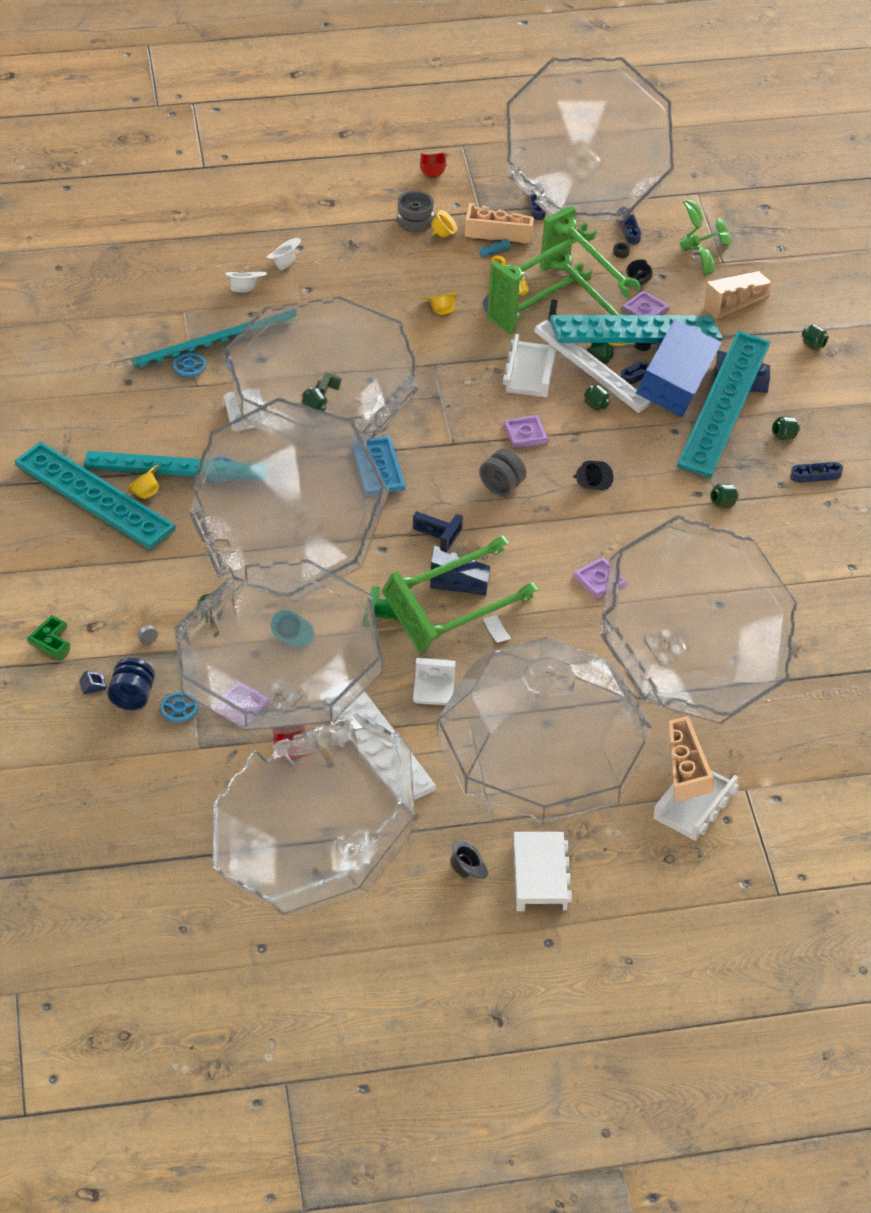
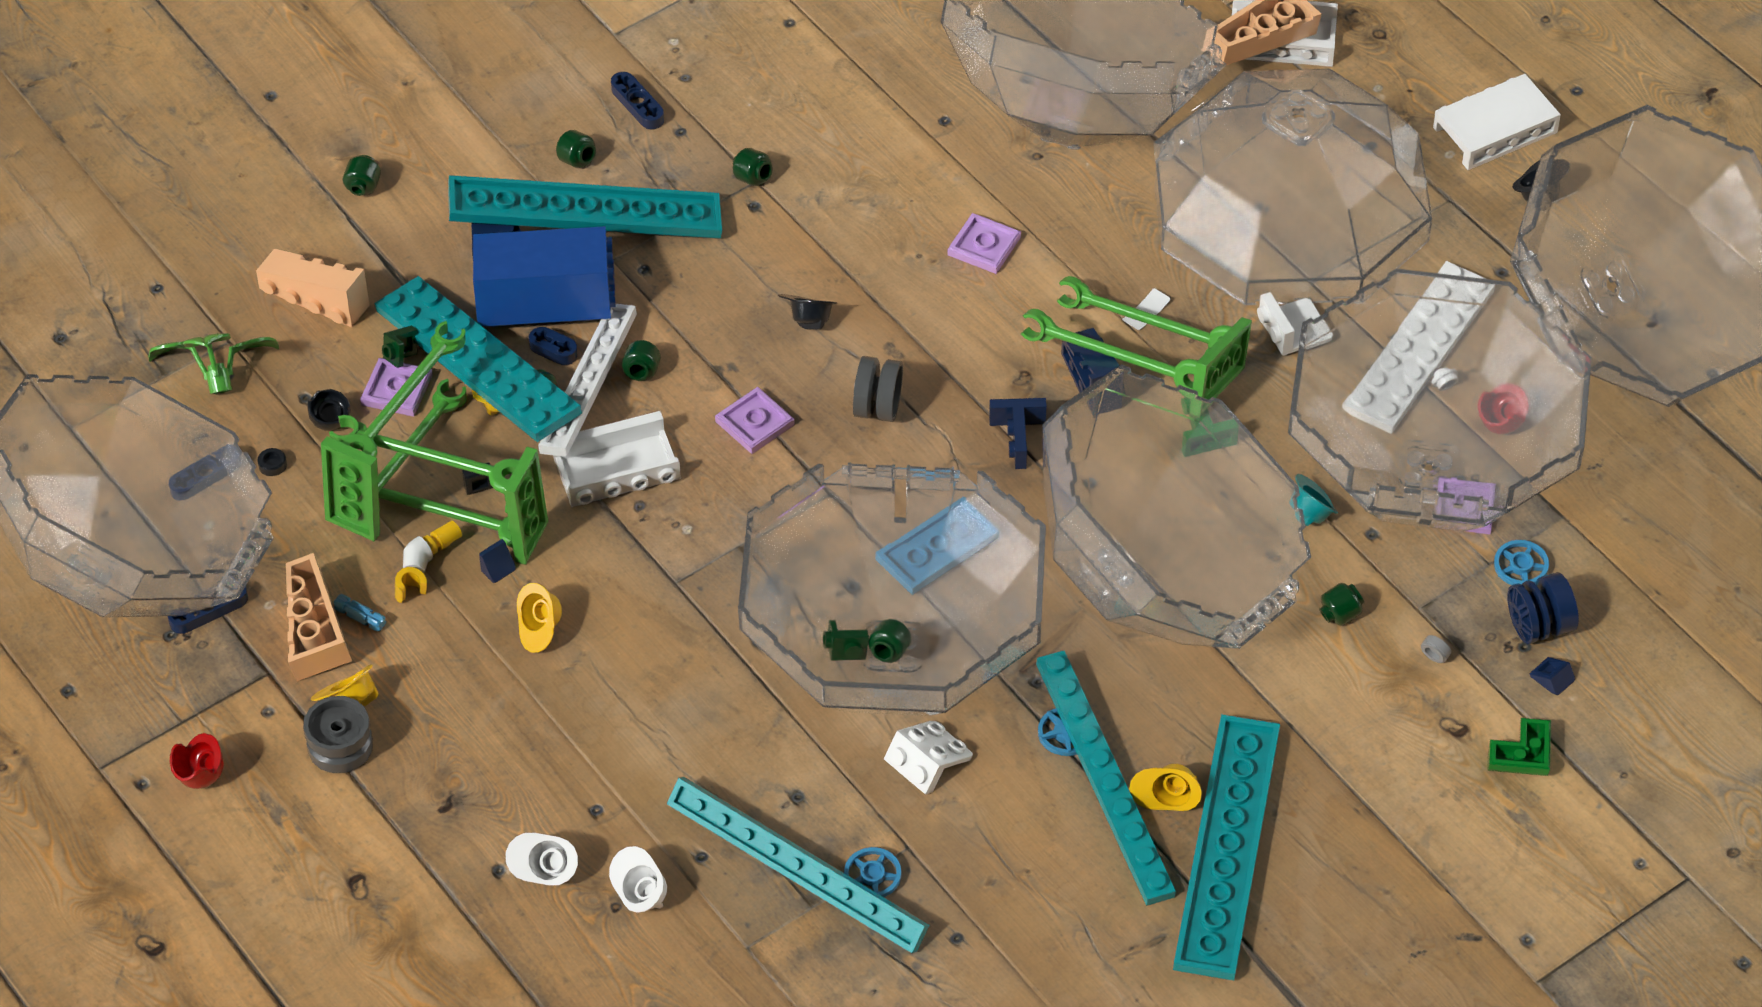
camera: 115 degrees left, 5 degrees up
(668, 305) = (399, 345): none -> dark green bracket

